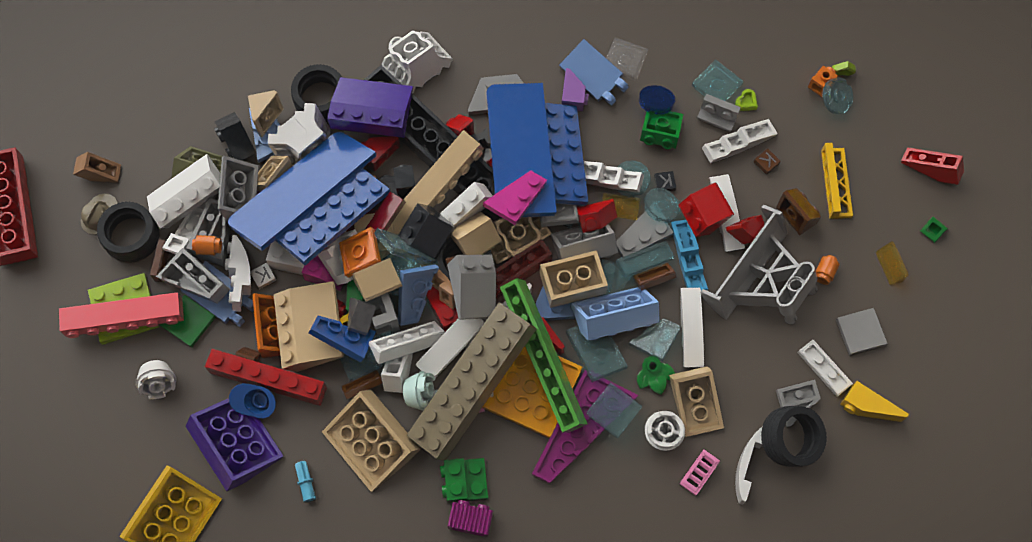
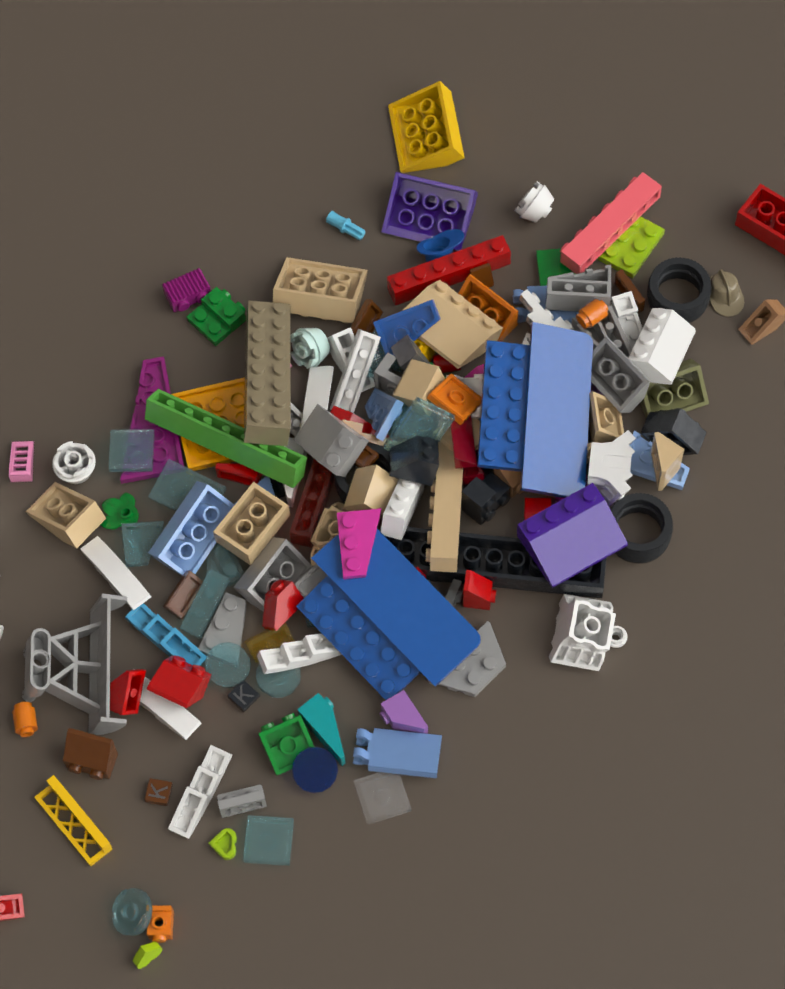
camera: 145 degrees right, 5 degrees down
(628, 127) = (320, 719): none -> teal slope

